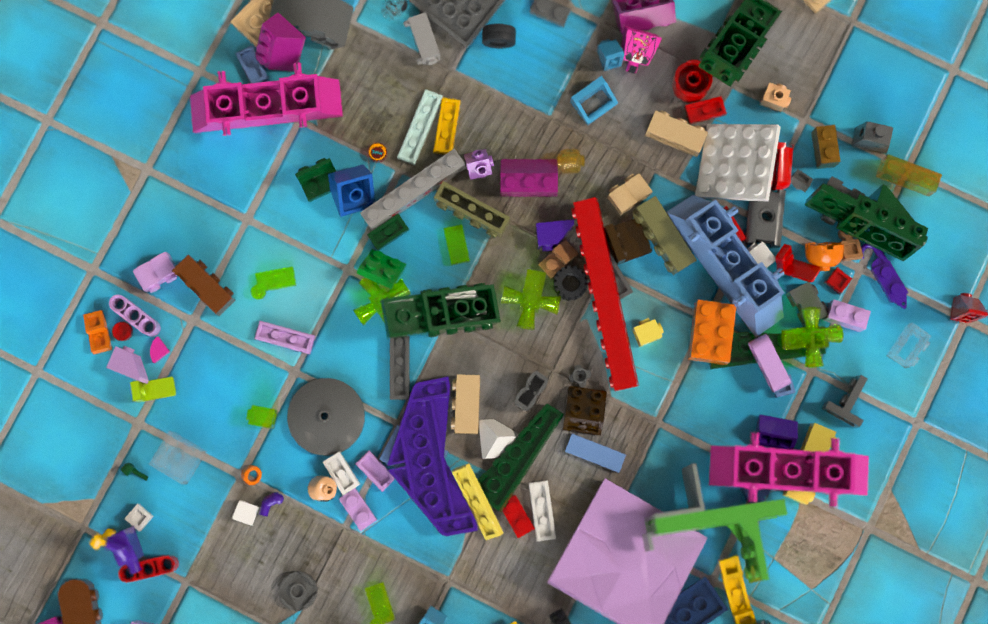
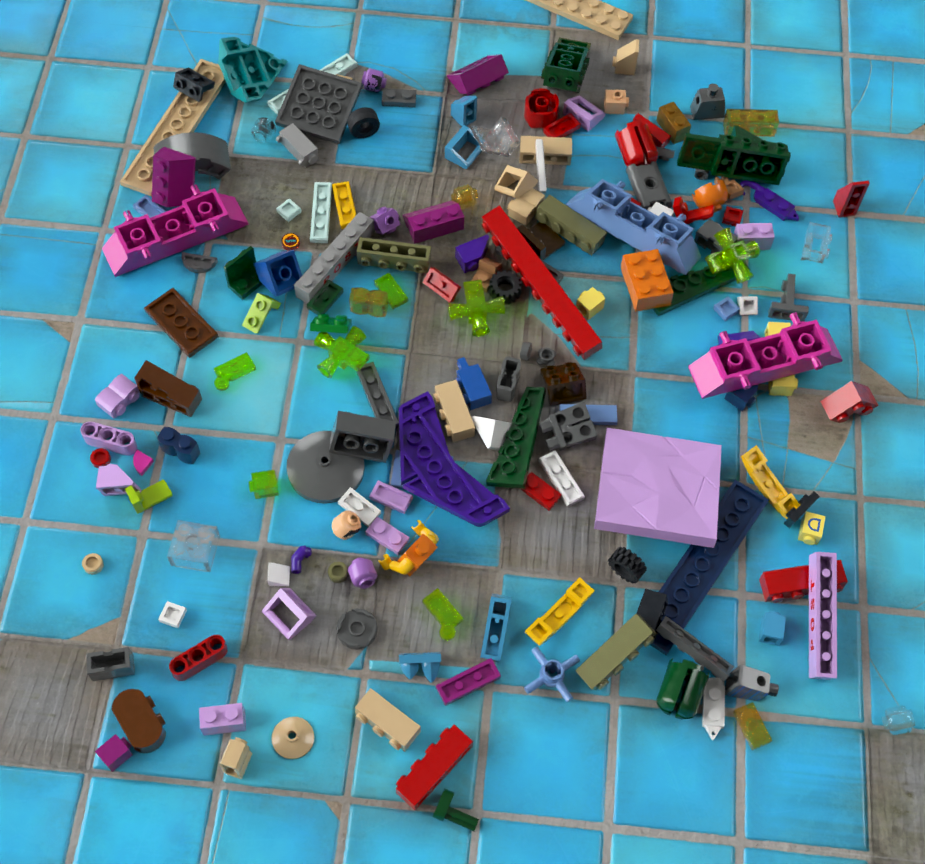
camera: 25 degrees left, 20 degrees down
(69, 548) = (110, 664): none -> dark grey brick
(84, 438) = (92, 563): none -> tan tile
(98, 332) = (76, 466): orange slope -> none
(123, 545) = (164, 634): dark purple torso -> none
(129, 468) = (147, 574): dark green hand -> none
(197, 349) = (178, 445): none -> dark blue brick
(241, 208) = (181, 322): none -> reddish brown tile
(246, 470) = (266, 543): orange piece -> none
(249, 549) = (296, 605): none -> lavender tile
(279, 145) = (198, 263): none -> flat silver tile
(284, 337) = (260, 413): lavender tile -> none
(300, 529) = (338, 572): none -> olive tile
(320, 224) = (258, 312): none -> lime bracket
(320, 541) = (362, 573): none -> medium lavender head
(366, 407) = (362, 436): none -> dark grey brick
(376, 542) = (416, 554): none -> torso
(388, 113) = (288, 210): none -> light aqua tile
(432, 255) = (368, 302): none -> clear yellow brick
(441, 311) = (402, 335): dark green wedge -> none
(477, 502) = (498, 485): light yellow tile -> none
(495, 380) = (473, 385): none -> blue hinge
(508, 258) = (441, 284): none -> plate
(562, 363) = (526, 350): none -> dark grey tile
(569, 465) = (569, 427): none -> dark grey hips
(628, 103) = (498, 140): none -> clear bracket
(638, 47) = (488, 96): dark pink torso -> none
(639, 171) = (513, 174): none -> tan tile
(660, 157) = (540, 166): none -> white tile
(730, 102) = (586, 119): none -> lavender tile
(738, 162) = (607, 149): white plate -> none
(740, 520) = (705, 424): bright green piece -> none
(769, 362) = (707, 288): lavender beam -> none
(800, 150) = (659, 136): none -> red piece
(806, 389) = (748, 305): none -> white slope
(810, 48) = (626, 58): none -> tan slope
(856, 539) = (849, 400): none -> brick

